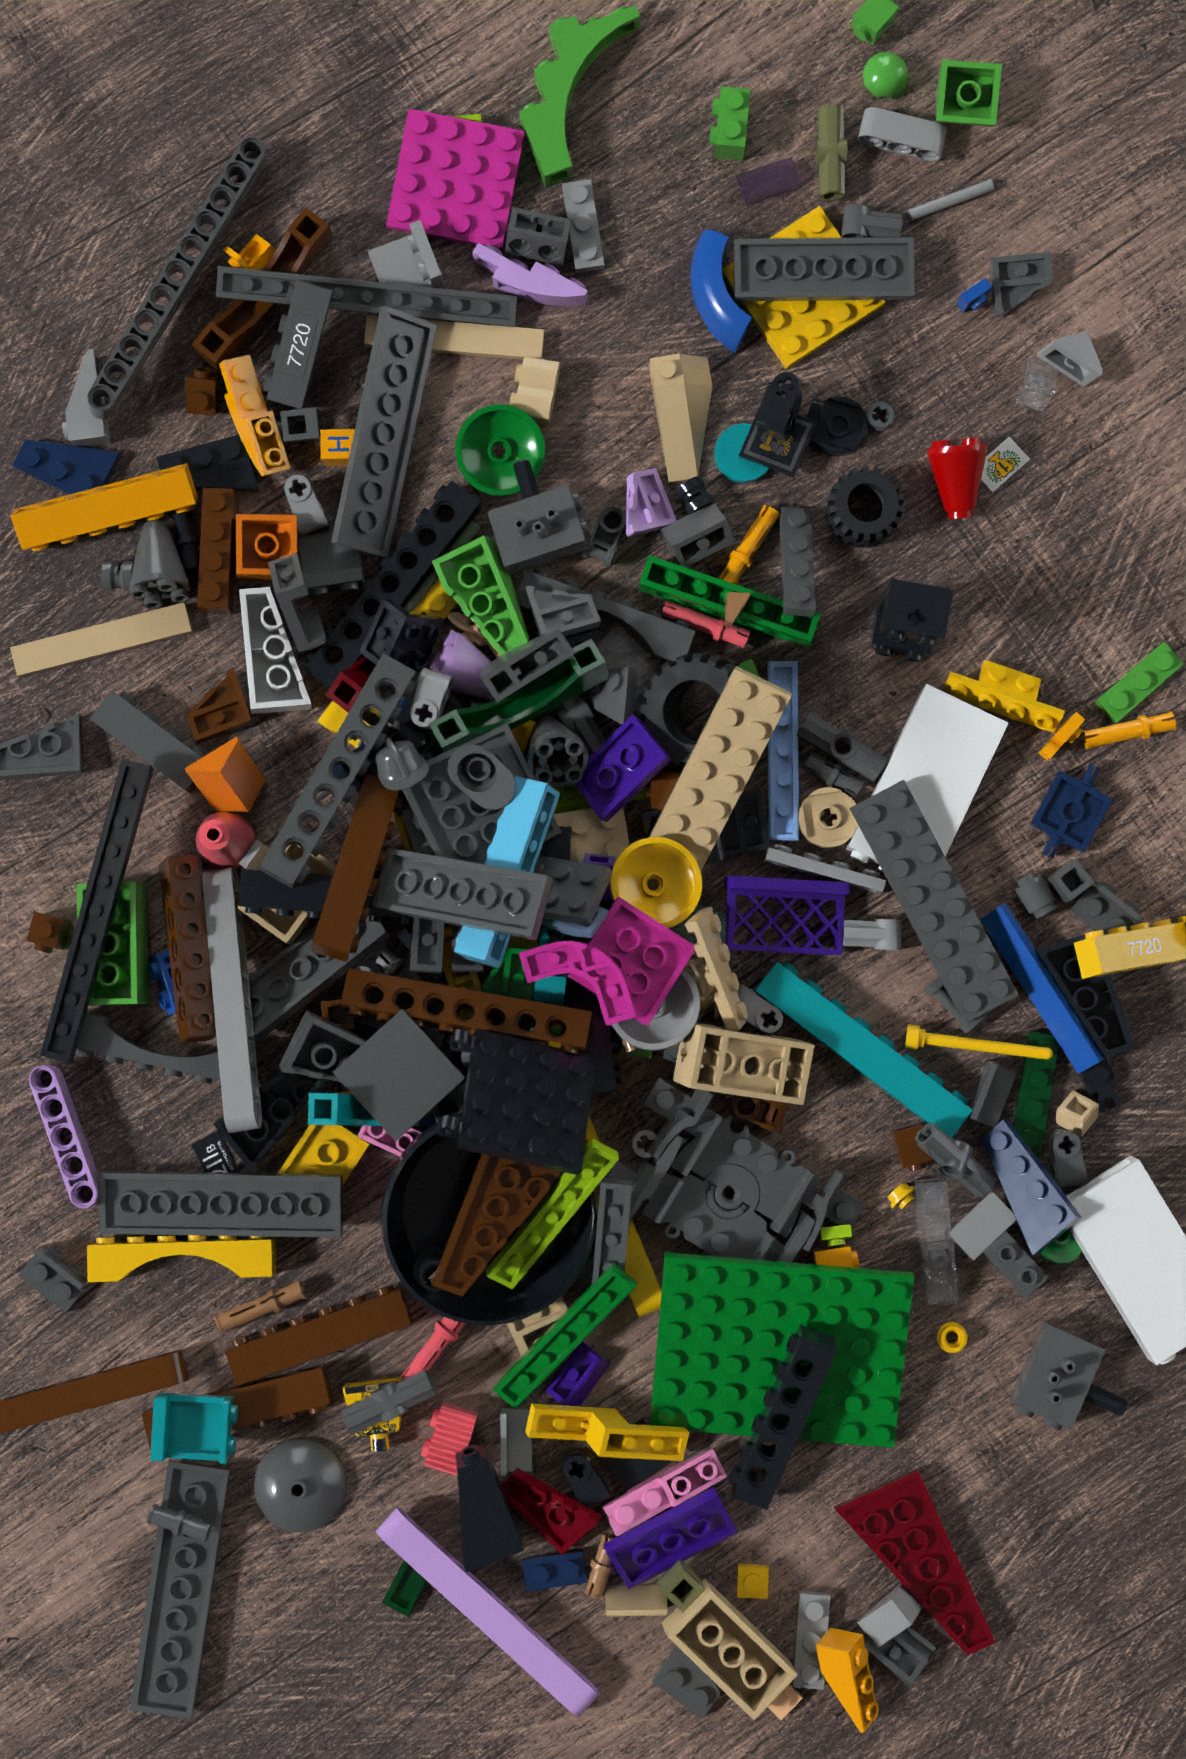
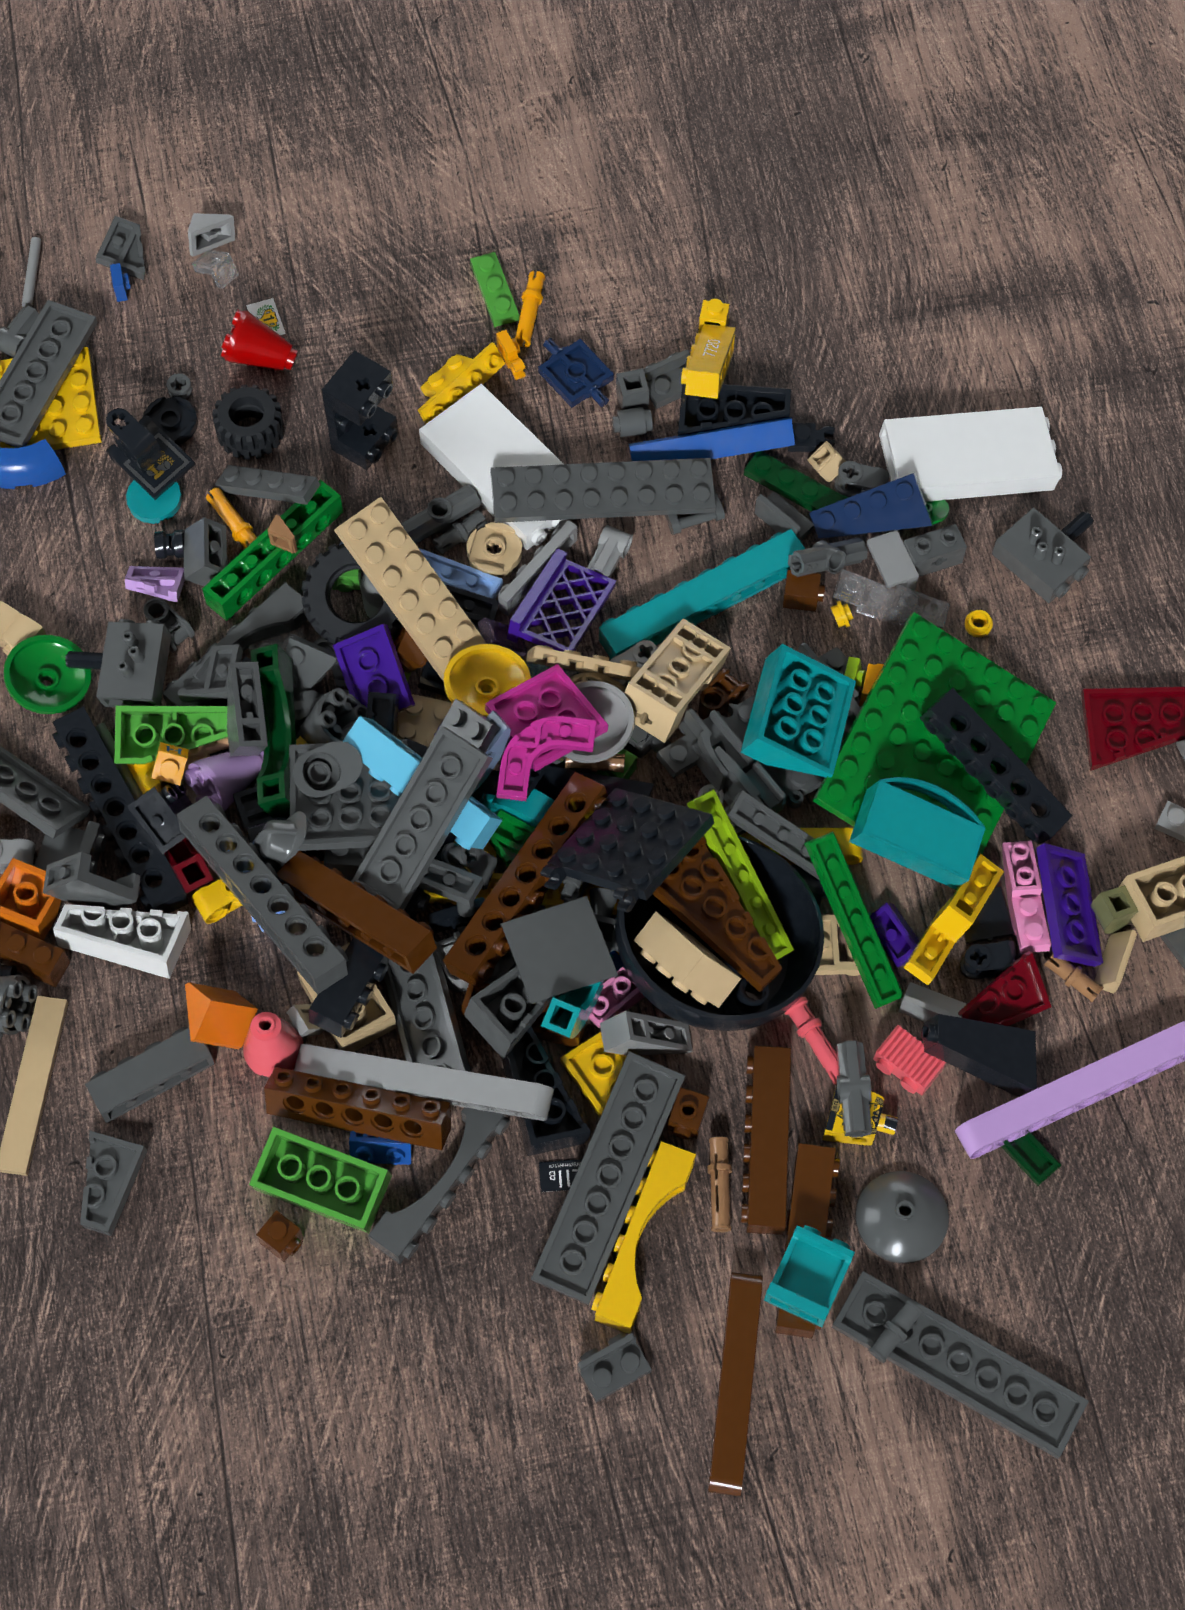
camera: 70 degrees left, 20 degrees down
(55, 1124) = (469, 1289): lavender beam -> none
(97, 911) = (285, 1169): black plate -> none
(220, 711) = (153, 1002): reddish brown wing -> none
(312, 1252) = (688, 1114): none -> reddish brown brick
(361, 1176) = (644, 1035): none -> light grey slope
(430, 1202) = (686, 960): none -> tan brick
(432, 692) = (234, 800): light grey piece -> none
(447, 615) = (170, 763): none -> light orange brick
(554, 1570) = (1063, 1021): dark blue plate -> none
(578, 797) = (384, 710): none -> black plate
(672, 1371) = (919, 832): none -> teal piece
(682, 405) = (88, 529): tan wedge -> none
(706, 624) = (291, 571): coral pin -> none
(722, 864) = (496, 633): none -> clear purple tile
(748, 1204) = (798, 714): none -> teal slope
(752, 1581) = (1132, 858): yellow plate -> none
(918, 1037) = (711, 553): yellow piece -> none

